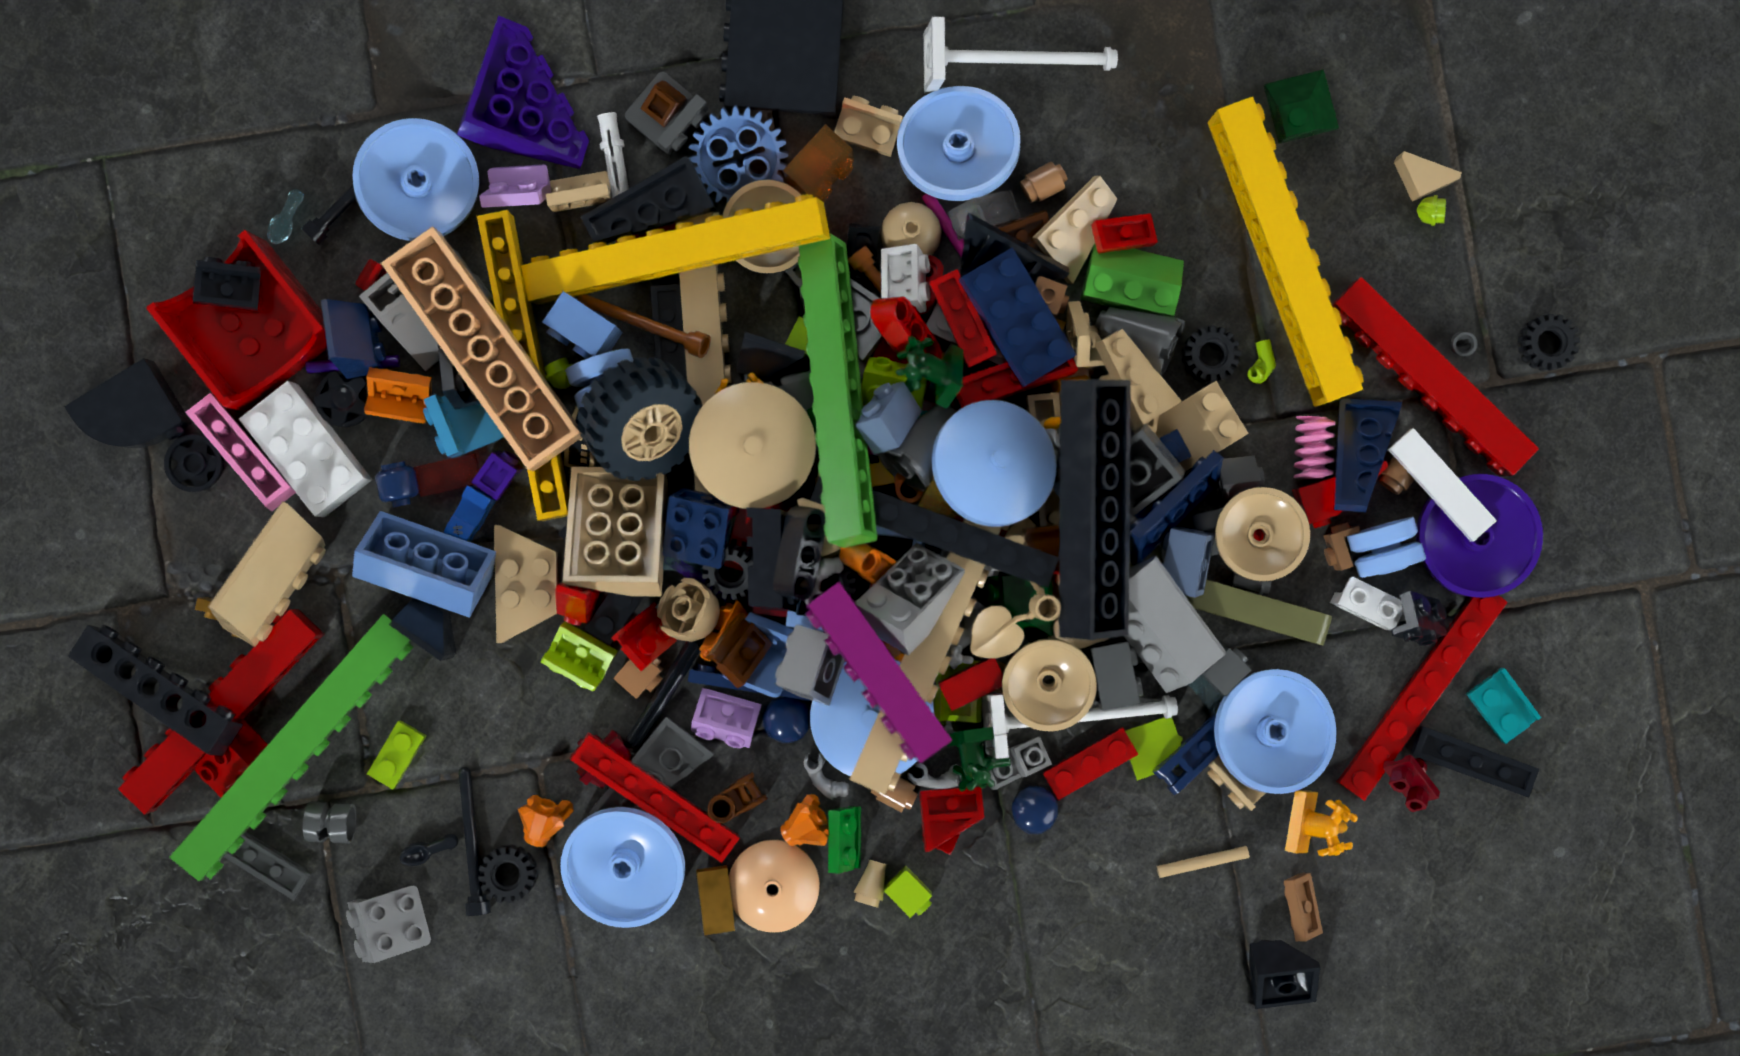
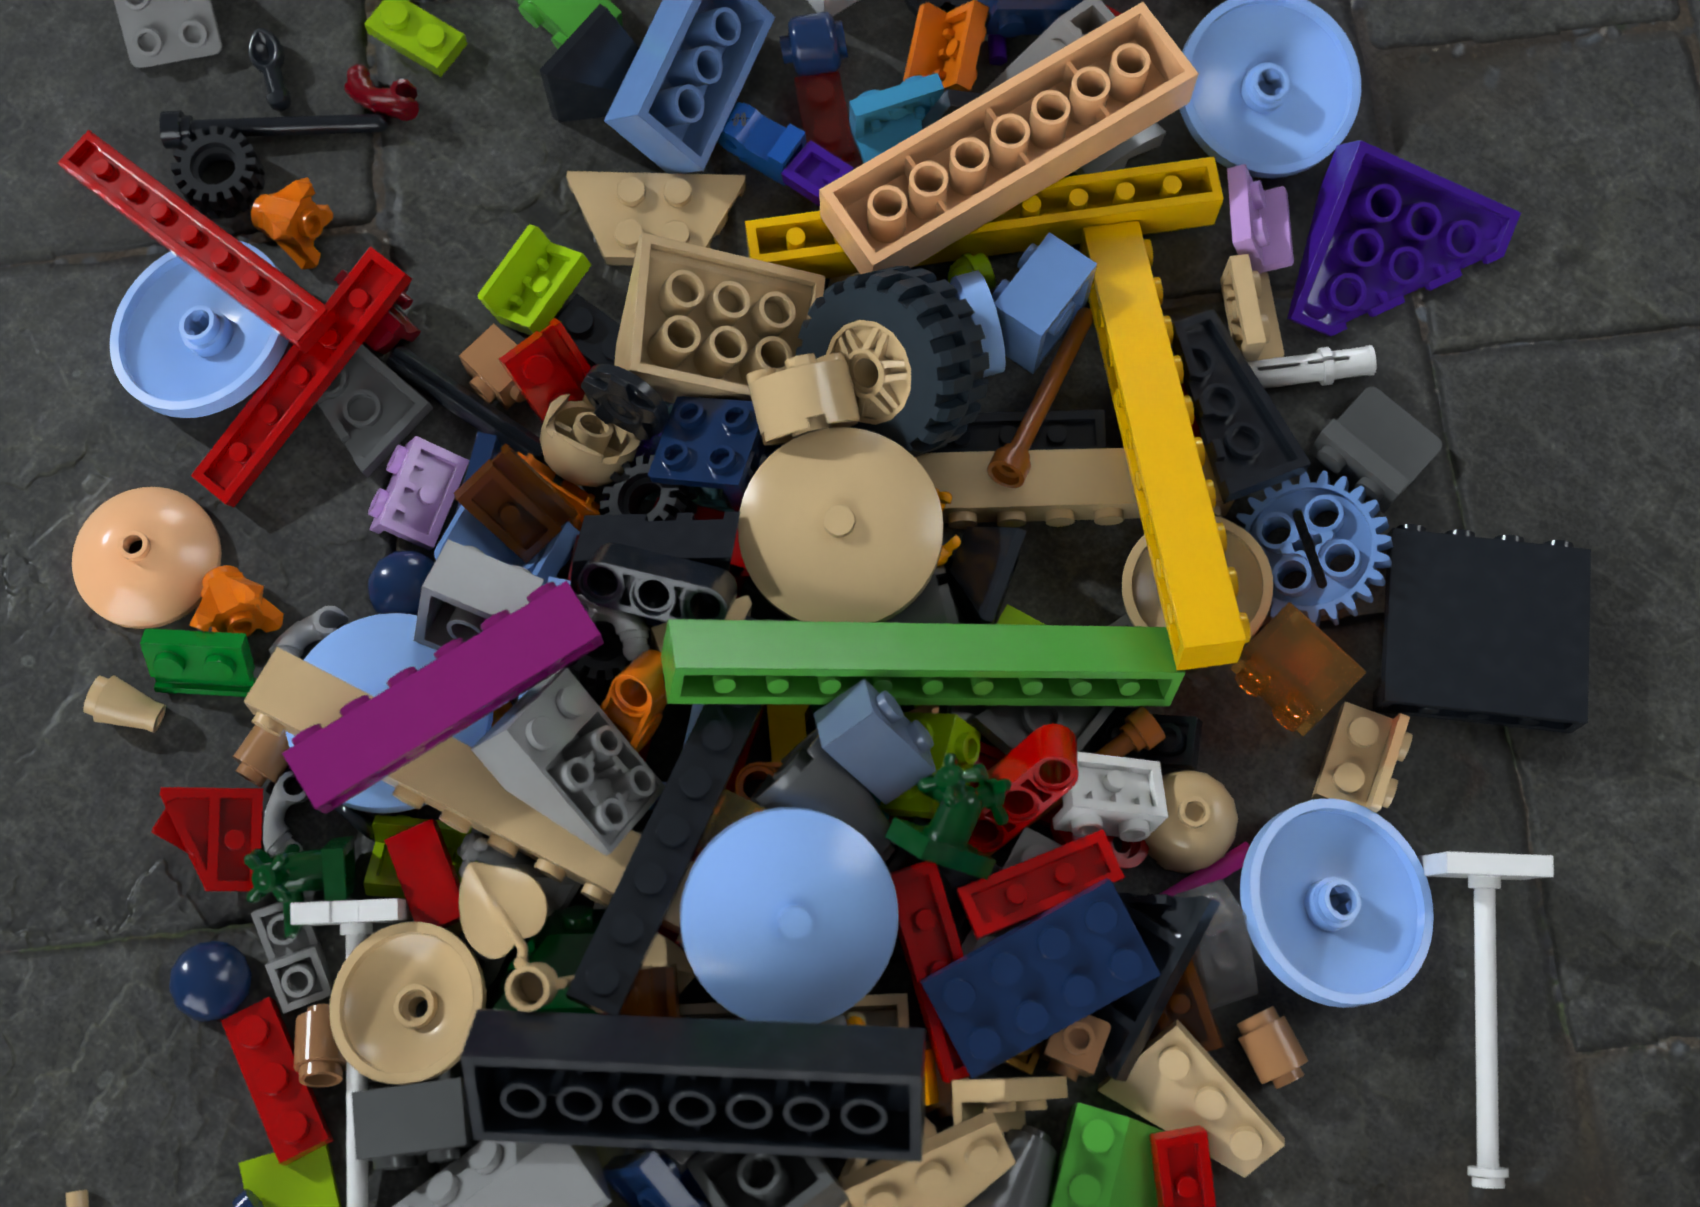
camera: 90 degrees right, 15 degrees down
(451, 767) = (393, 101): none -> dark red piece
(563, 878) = (198, 242): none -> red tile
(575, 603) = (609, 277): red slope -> none
(663, 102) = (1396, 439): reddish brown slope -> none
(671, 472) = (803, 397): none -> tan brick
(671, 586) = (625, 401): none -> black wheel
(715, 900) = (133, 464): pearl gold slope -> none
(737, 798) = (290, 507): reddish brown piece -> none
(908, 892) = (101, 763): lime brick -> none
(1072, 739) = (315, 1050): none -> medium nougat brick

